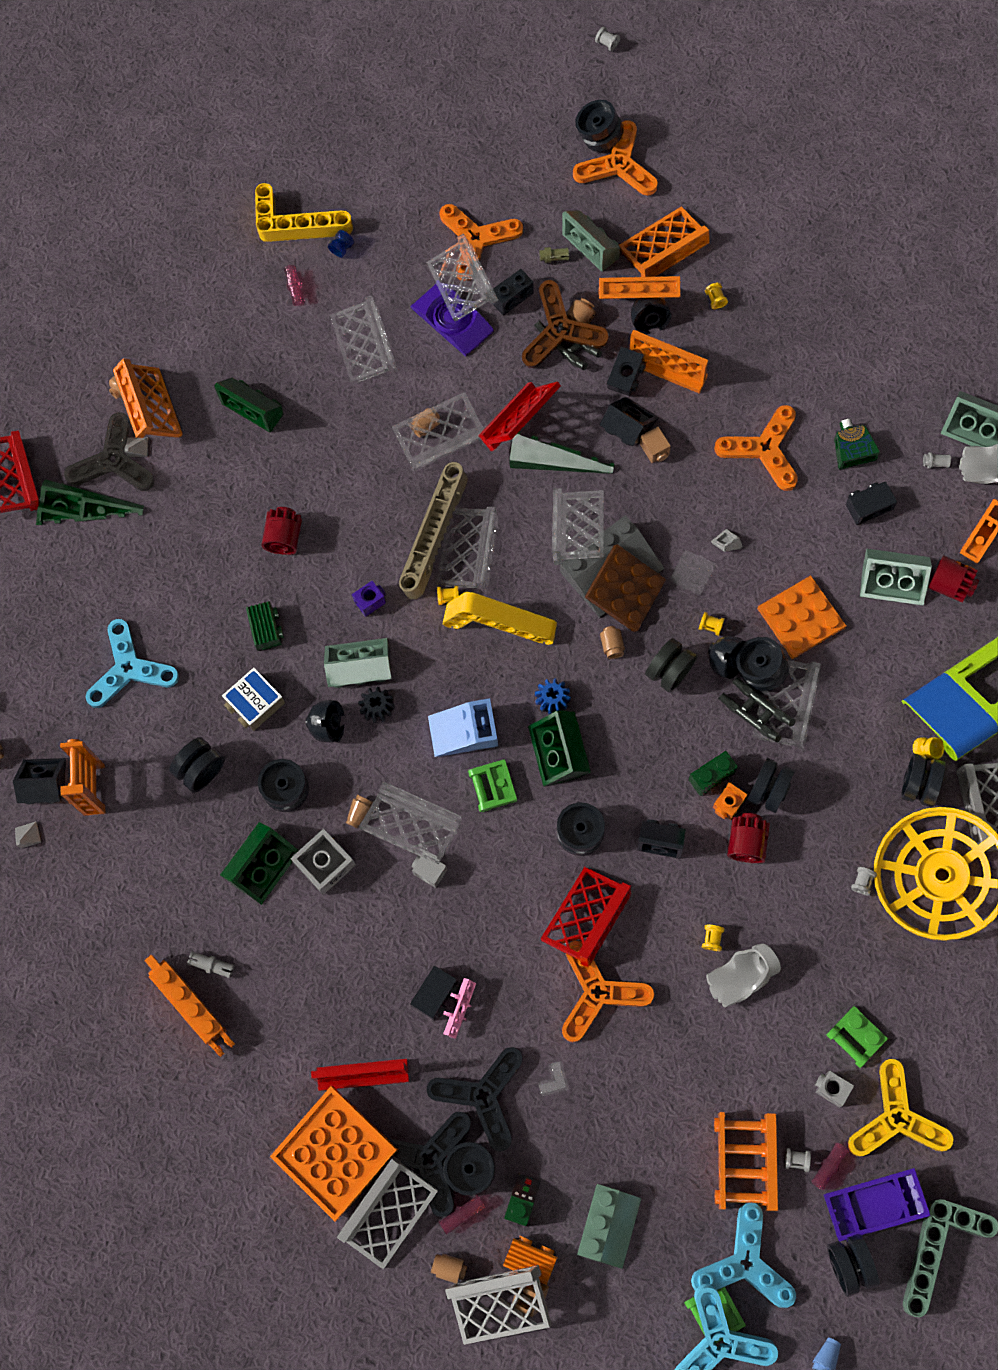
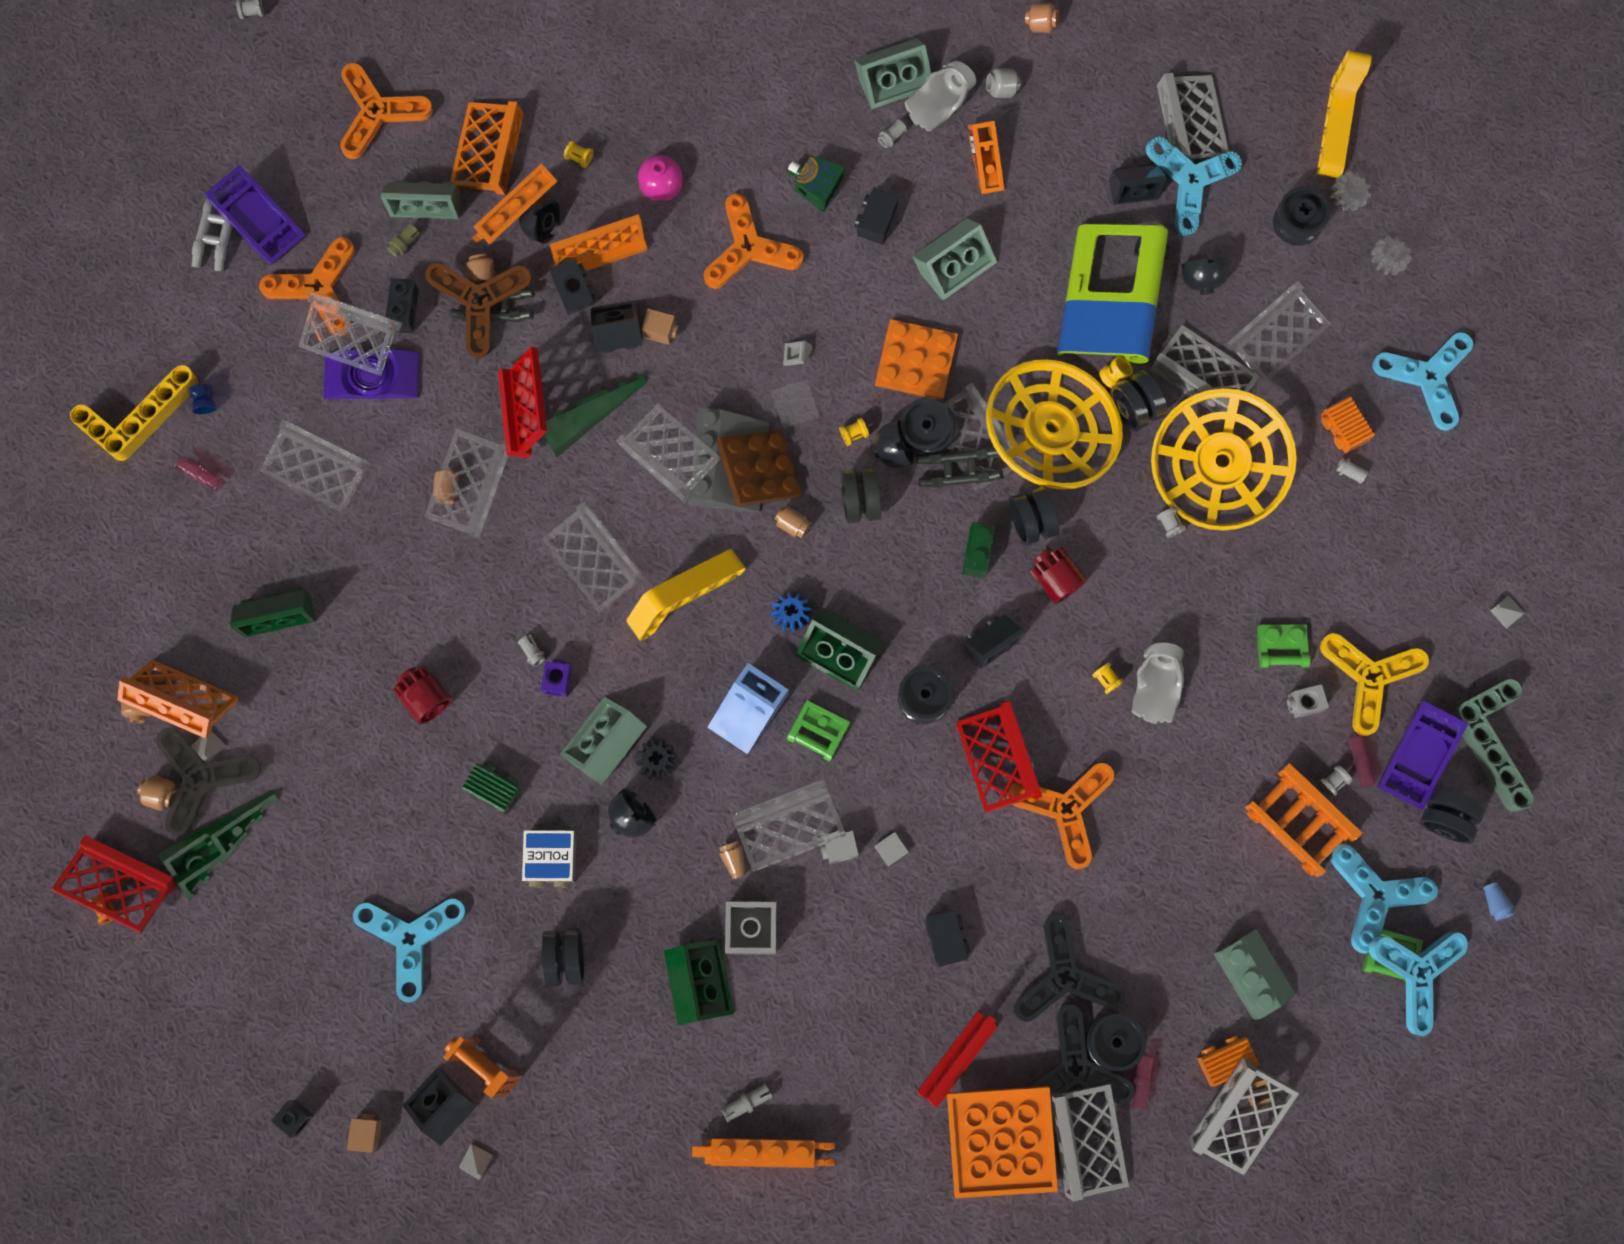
camera: 55 degrees left, 5 degrees up
(81, 445) = (157, 792): none -> medium nougat head
(280, 773) = (666, 904): black wheel -> none
(373, 567) = (532, 651): none -> light grey pin
(432, 530) = (550, 570): dark tan gear -> none
(446, 162) = (202, 237): none -> light grey piece
(447, 594) = (619, 612): yellow bush -> none
(449, 1268) = (1176, 1131): medium nougat brick -> none
(456, 1018) = (984, 937): bright pink piece -> none
(460, 904) = (891, 849): none -> light grey tile
(481, 162) = (254, 215): none -> dark purple slope
(522, 1199) = (1176, 1023): slope -> none
(557, 1083) = (1108, 909): clear piece -> none
(599, 125) = (327, 91): black wheel -> none
(725, 810) = (1009, 569): orange brick -> none
(753, 355) = (660, 178): none -> dark pink cylinder
(857, 736) = (1060, 417): none -> yellow dish
(954, 579) = (1003, 218): dark red gear -> none

